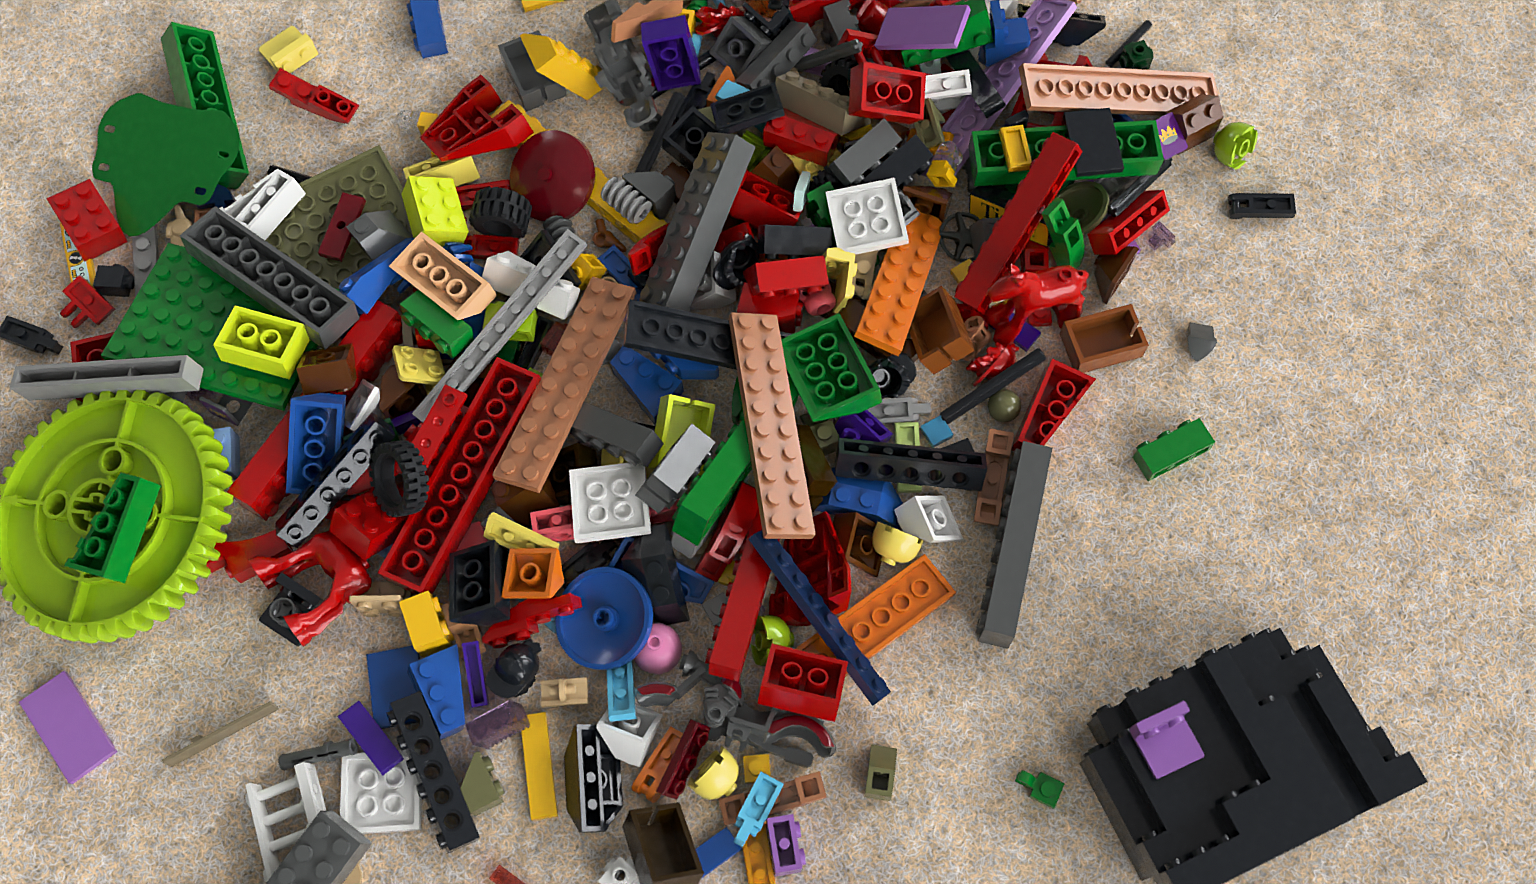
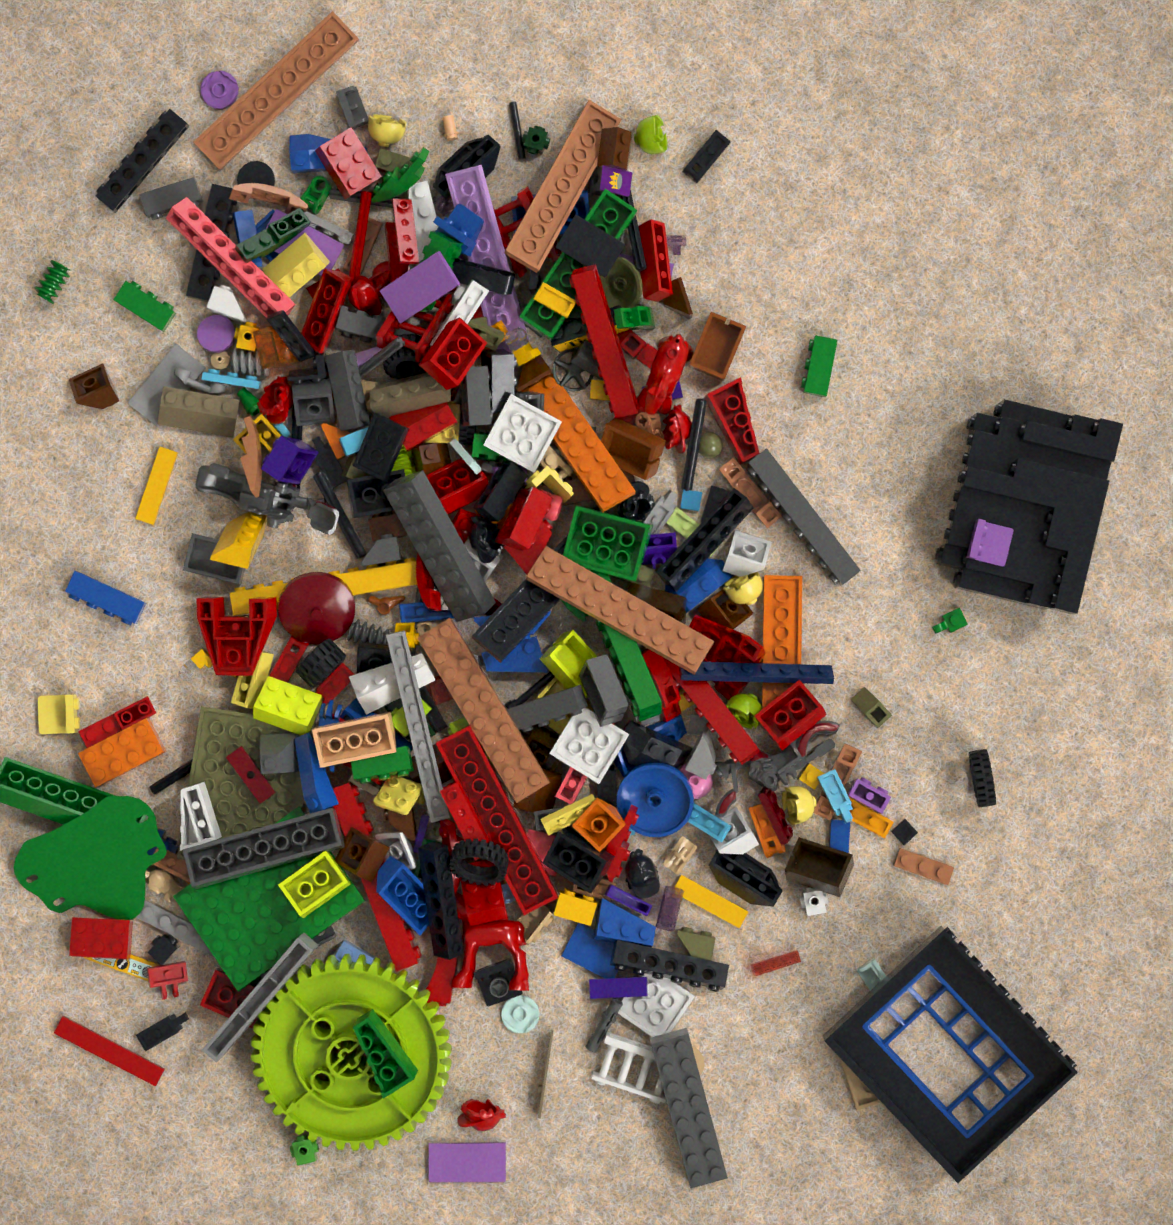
camera: 55 degrees left, 20 degrees up
(125, 696) = (480, 1115): none -> red hair
(280, 664) = (520, 1014): none -> light aqua tile
(288, 119) = (122, 752): none -> orange brick
(625, 200) = (381, 575): light grey piece -> none
(688, 628) = (702, 756): none -> light grey slope
(1200, 340) = (764, 283): dark grey tile -> none

